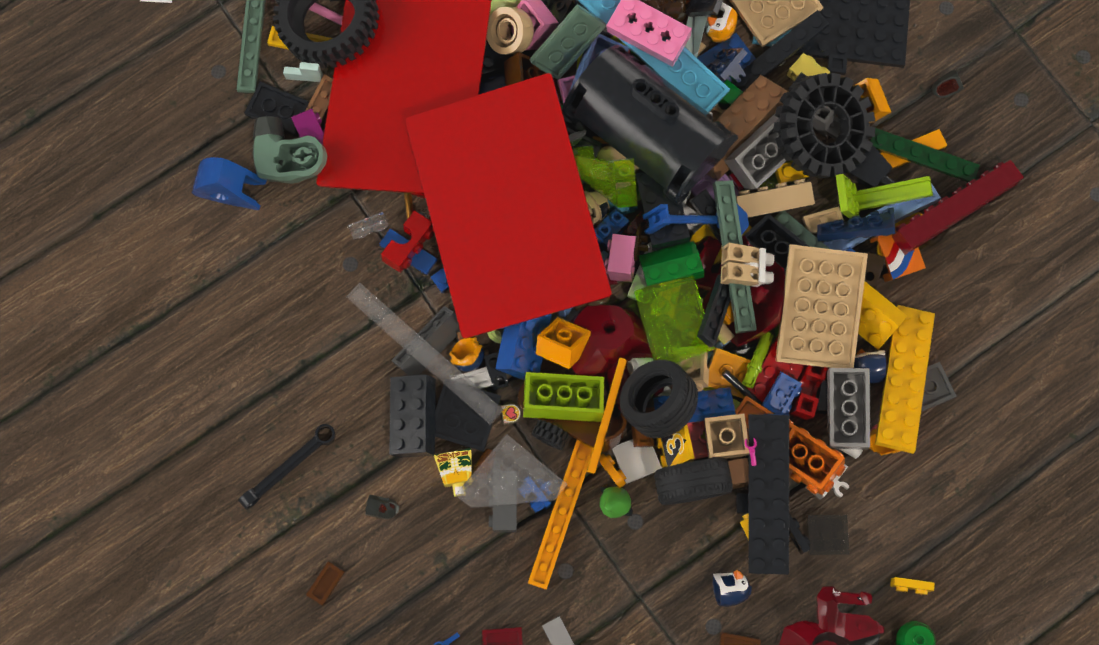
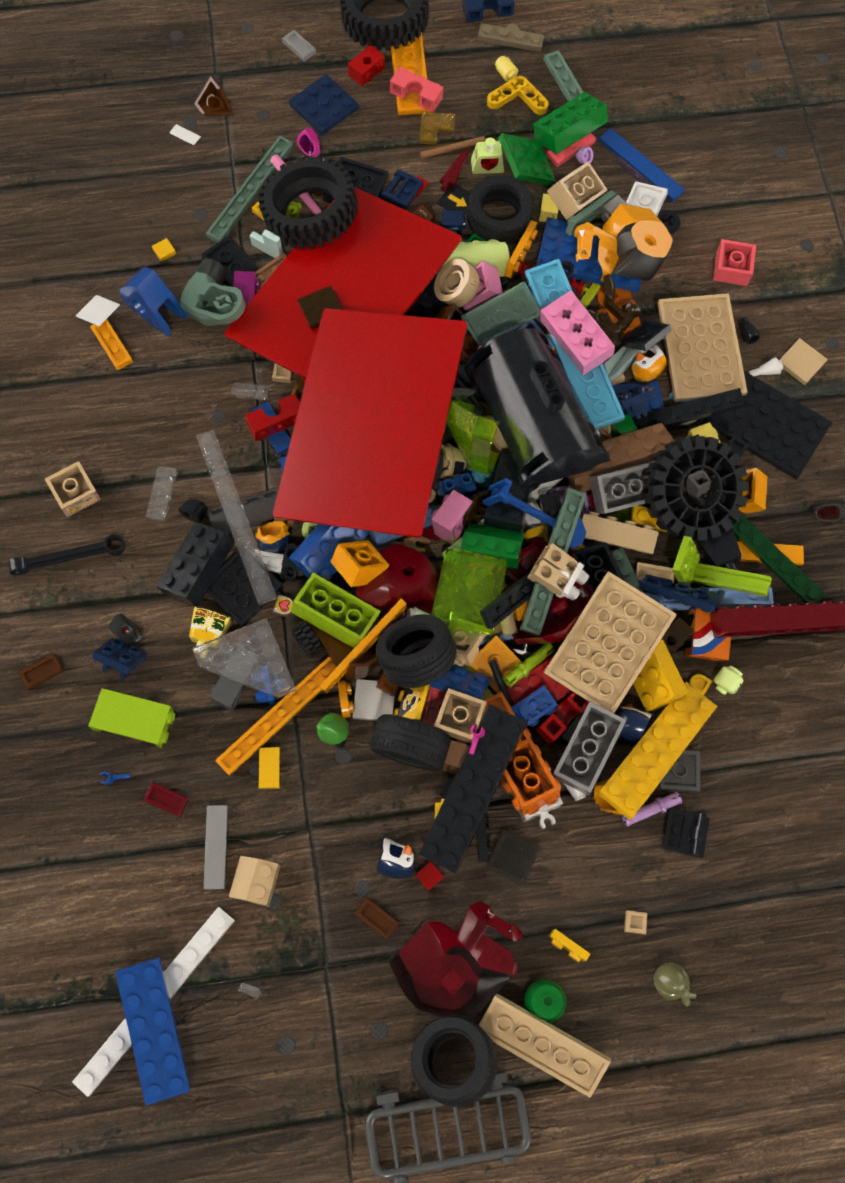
camera: 25 degrees right, 5 degrees down
(177, 217) = (97, 310): none -> white sticker
(205, 125) = (164, 250): none -> yellow tile
(210, 244) = (112, 345): none -> light orange plate
(258, 402) = (72, 489): none -> tan brick
(310, 21) = (296, 206): none -> lime plate
(341, 366) = (161, 494): none -> clear plate
(379, 366) = (193, 510): none -> black piece
(388, 197) = (281, 374): none -> tan plate
(391, 534) = (119, 656): none -> dark blue plate
(393, 114) = (315, 303): none -> dark brown tile
(433, 582) = (132, 717): none -> lime panel
(577, 564) = (269, 768): none -> yellow tile
(765, 587) = (429, 876): none -> red tile
(910, 300) = (700, 683): none -> yellow tile
(929, 425) = (659, 805): none -> lavender pin
(933, 285) = (728, 680): none -> yellowish green head
(957, 536) = (635, 922): none -> tan tile
(961, 439) = (685, 833): none -> black plate
(1013, 571) = (673, 983): none -> olive hat

